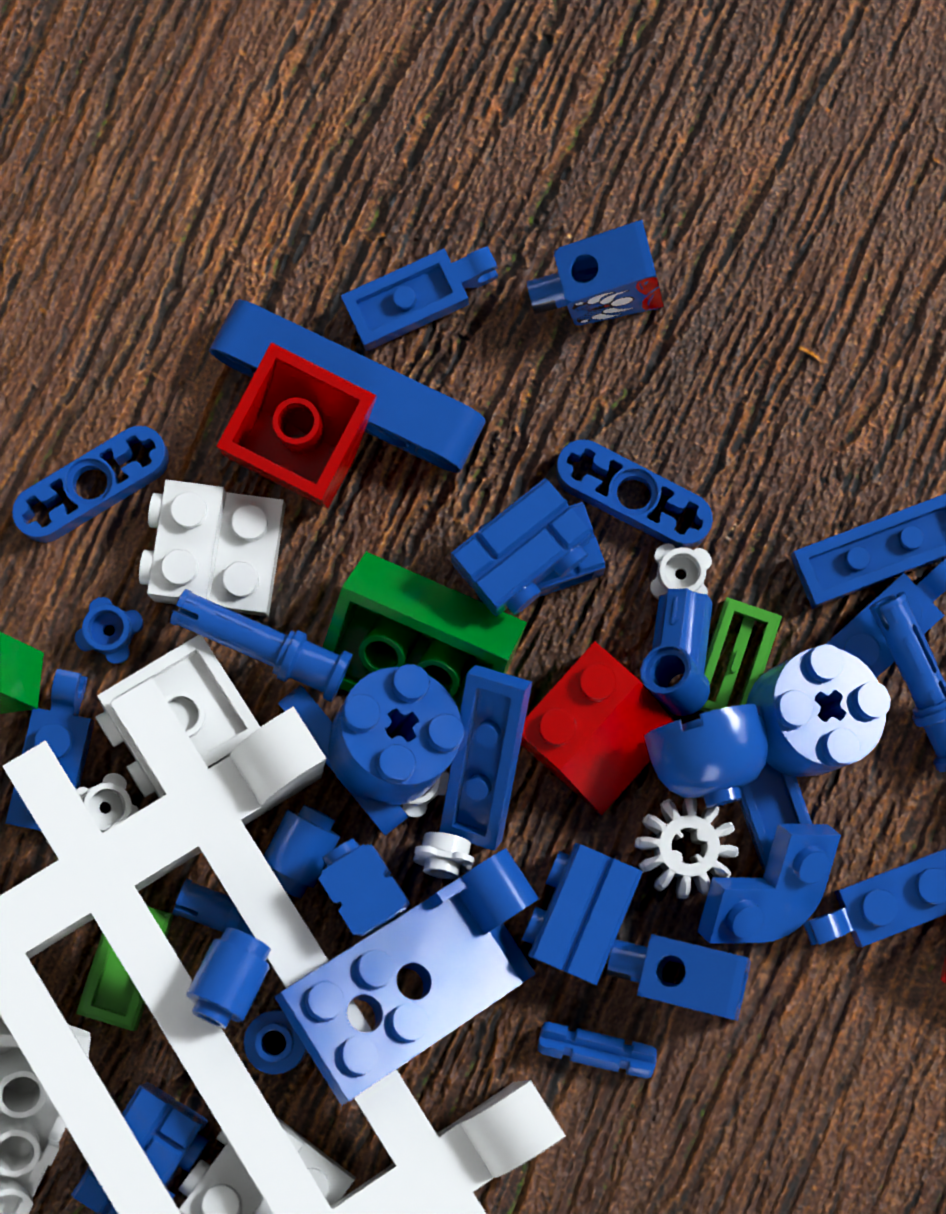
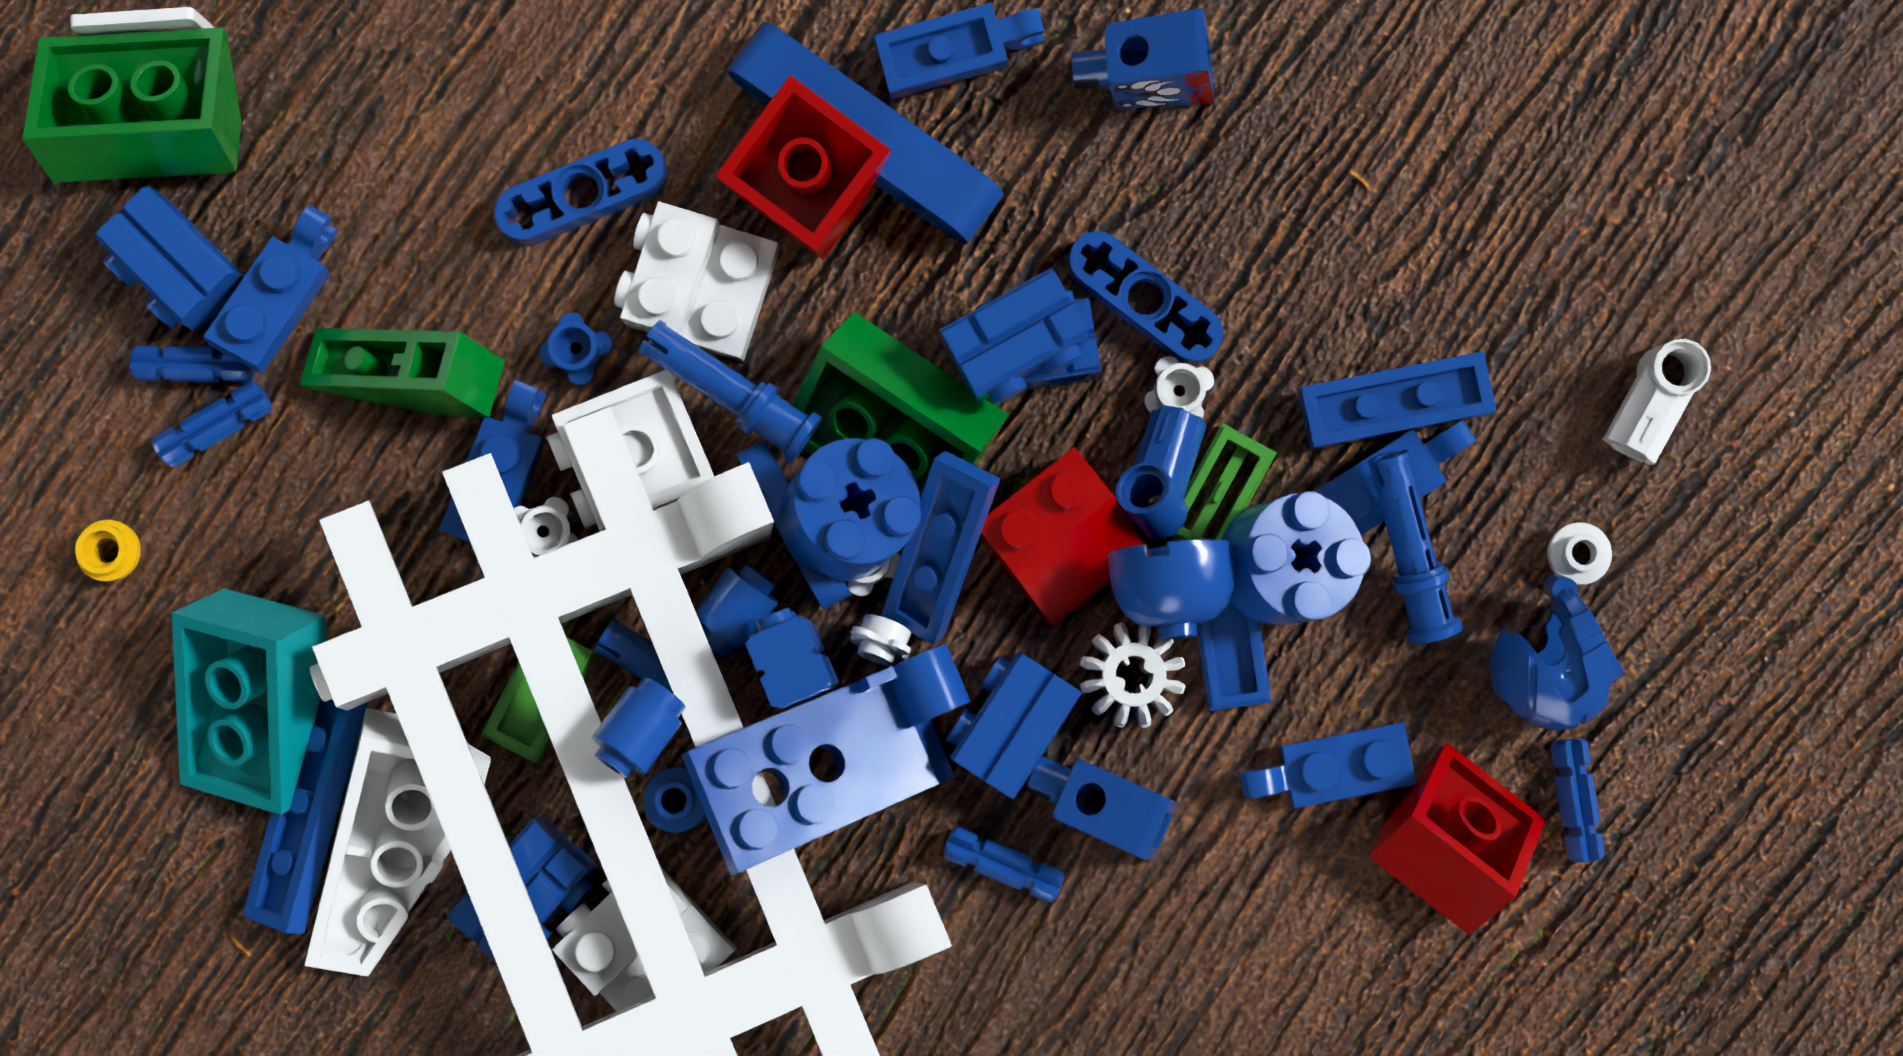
camera: 15 degrees right, 5 degrees up
(781, 900) = (1222, 745): blue plate -> none

